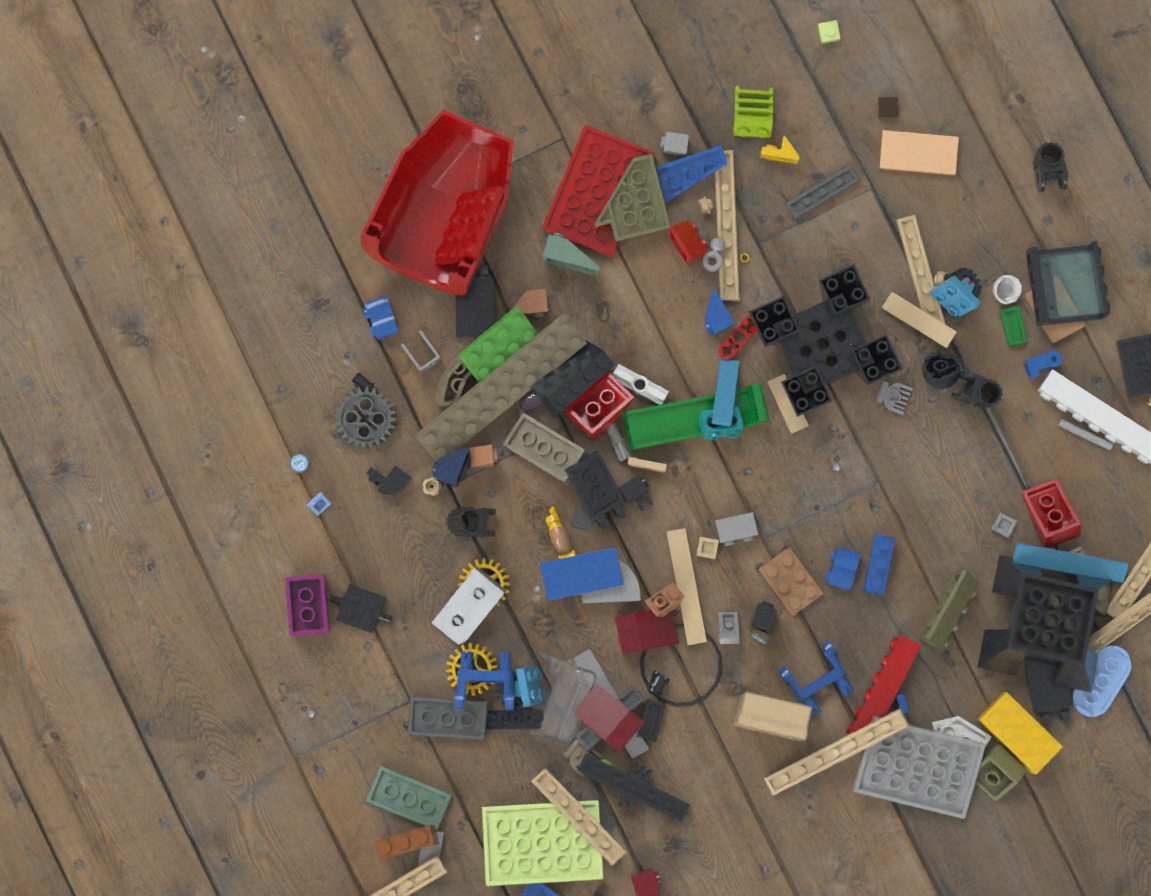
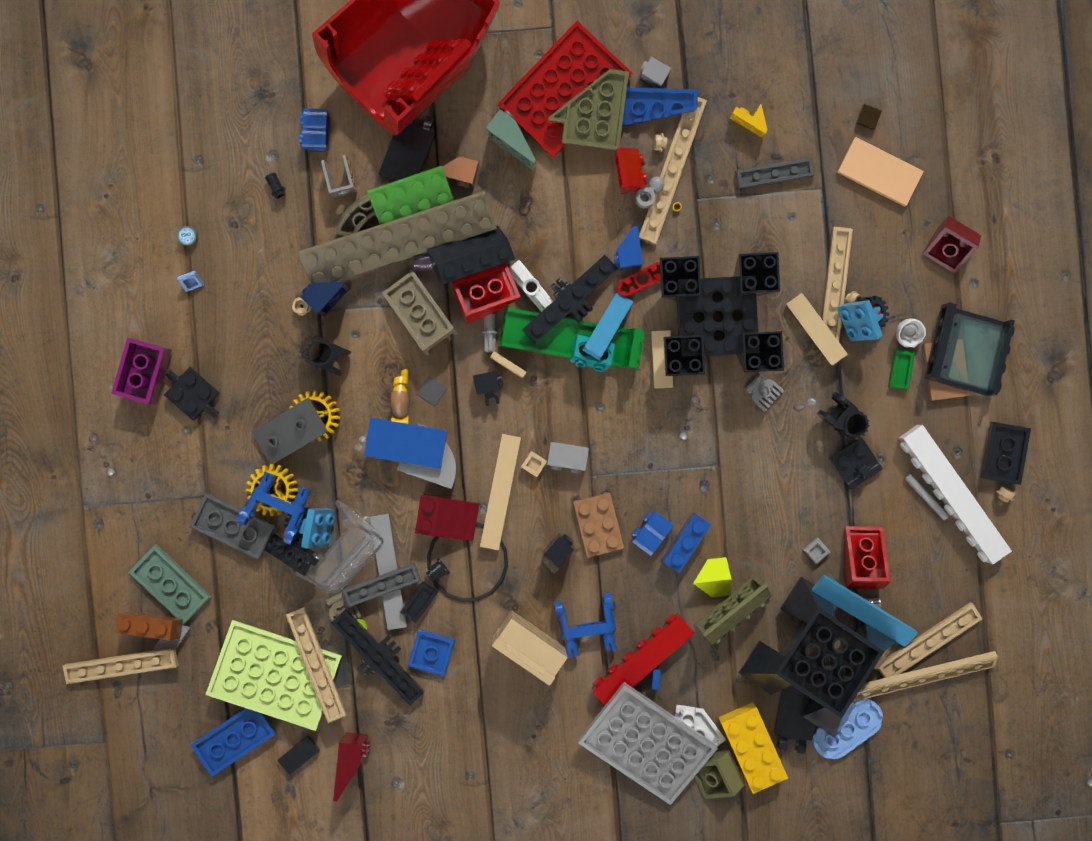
camera: 25 degrees right, 5 degrees up
(378, 405) = (278, 210): dark grey gear -> none
(393, 484) = (266, 288): black brick -> none
(483, 456) = (358, 297): nougat slope -> none
(596, 488) = (451, 368): black tile -> none
(608, 717) = (378, 586): slope -> none
(665, 600) = (473, 498): nougat slope -> none
(680, 381) = (570, 299): none -> black hinge
(681, 764) = (431, 652): none -> blue tile
(728, 628) = (523, 546): light grey slope -> none
(753, 121) = (740, 72): lime plate -> none
(829, 31) = (842, 23): yellowish green plate -> none
(836, 752) = (578, 701): tan tile -> none
(919, 588) = (715, 578): none -> neon yellow slope
(941, 370) = (818, 385): black cylinder -> none
(1006, 429) = (855, 463): none -> black hinge
(1012, 193) = (952, 244): none -> dark red slope
(1041, 166) = (1009, 235): black piece -> none
(1047, 360) = (922, 415): blue leg -> none

